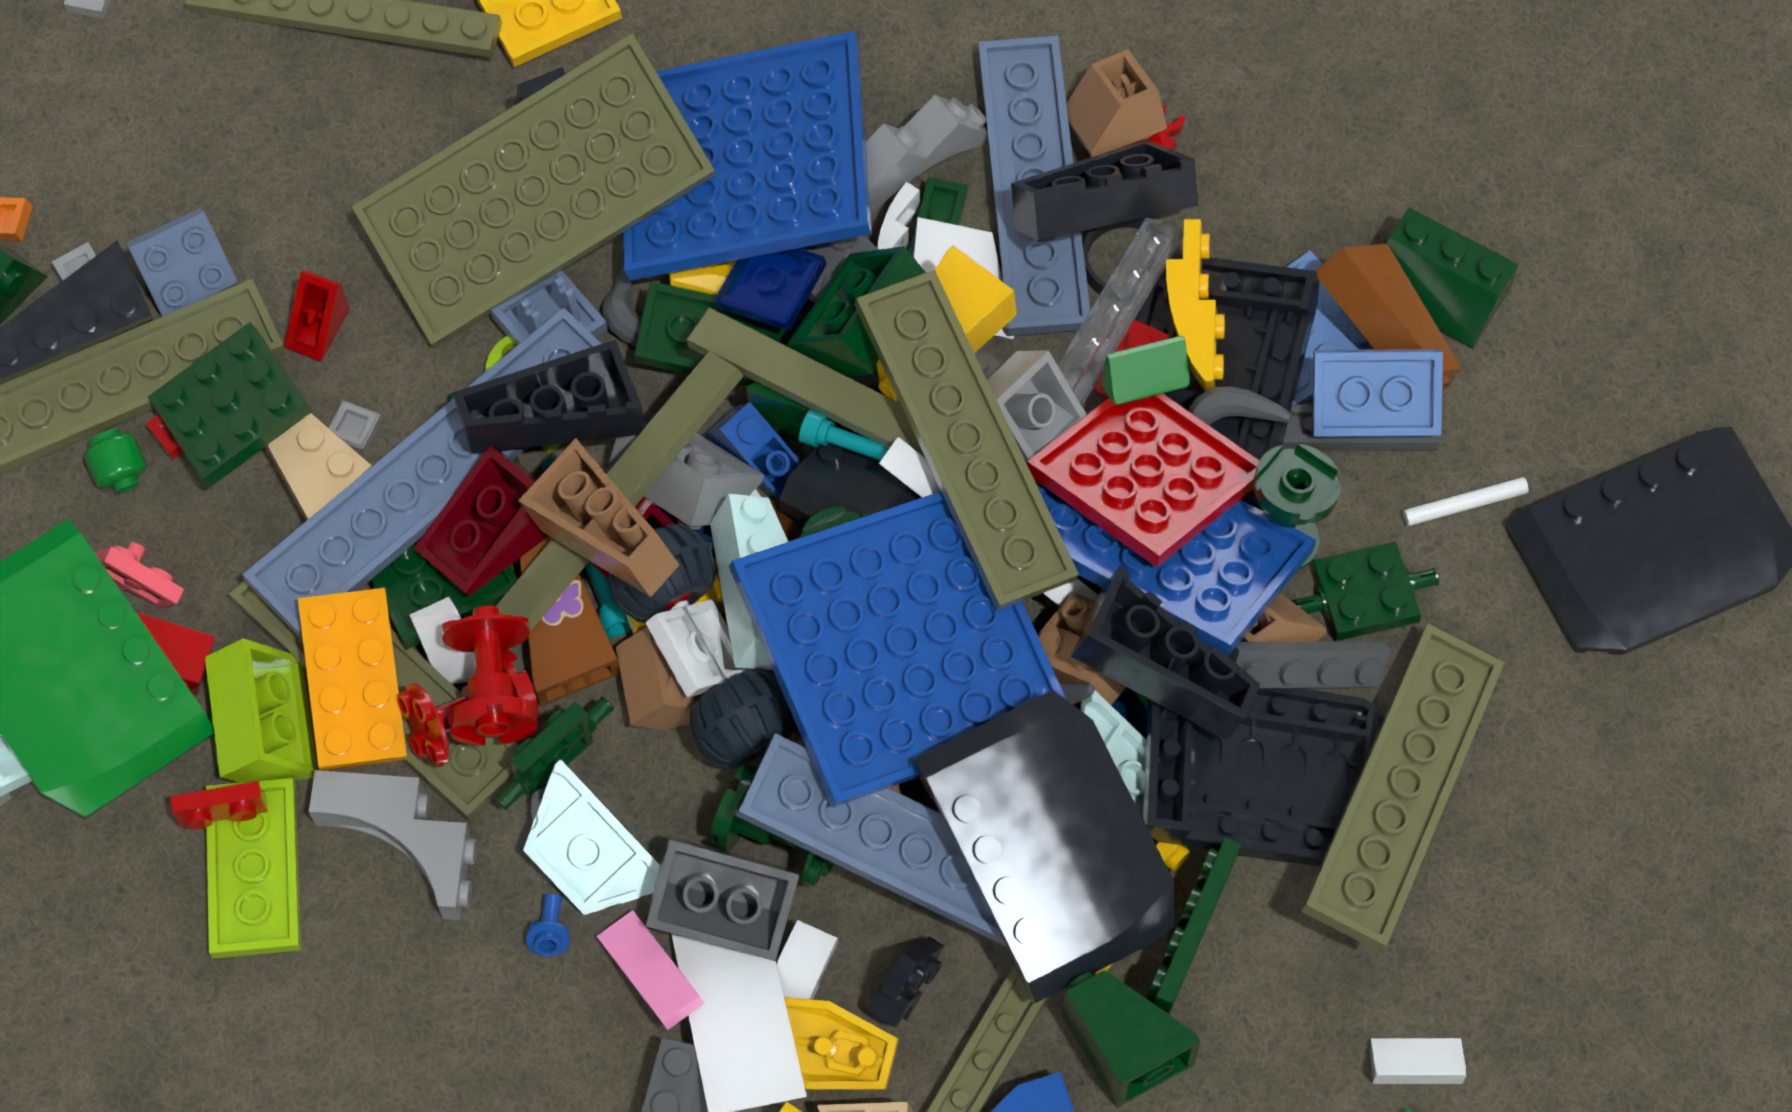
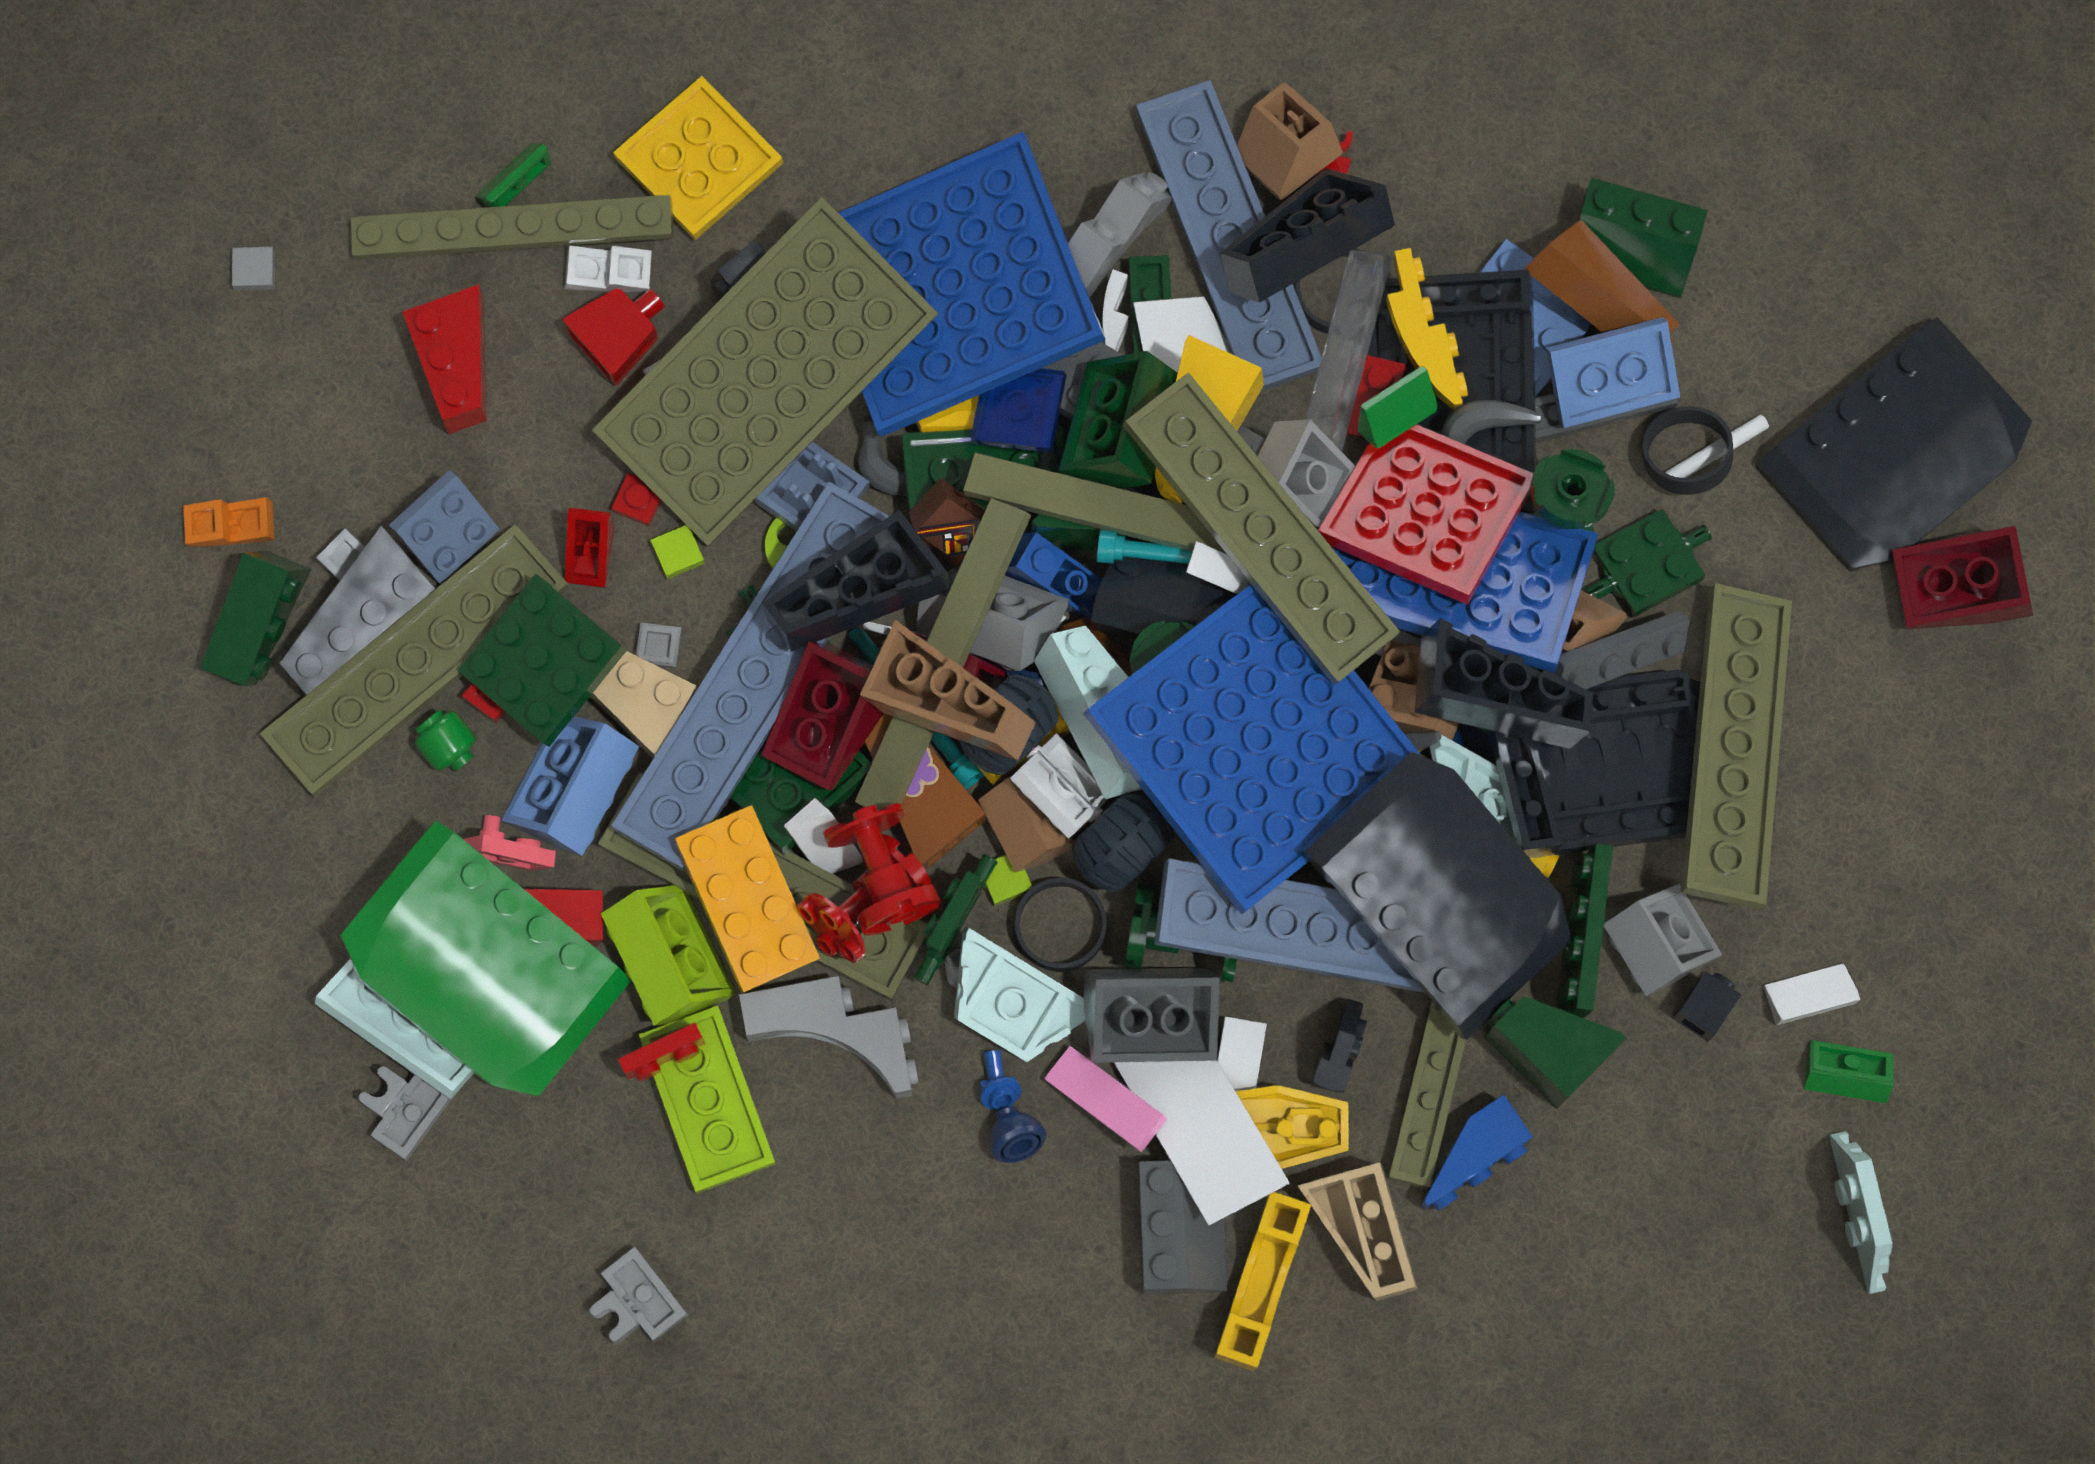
camera: 20 degrees left, 10 degrees up
(116, 1045) = (637, 1299): none -> light grey plate
(224, 532) = (571, 785): none -> medium blue slope
(246, 109) = (452, 353): none -> red wedge
(377, 289) = (636, 501): none -> red plate
(401, 344) = (677, 551): none -> lime tile
(409, 127) = (615, 331): none -> red torso
(423, 75) = (608, 270): none -> white slope
(548, 985) = (1015, 1135): none -> dark blue brick
(619, 736) = (1006, 883): none -> lime tile
(647, 750) = (1060, 882): none -> black tyre
(663, 366) = (947, 520): none -> copper brick
(1274, 962) = (1661, 939): none -> light grey slope
(1303, 1041) = (1708, 1005): none -> black brick
(1437, 458) = (1681, 415): none -> black tyre
(1690, 686) = (1963, 580): none -> dark red slope

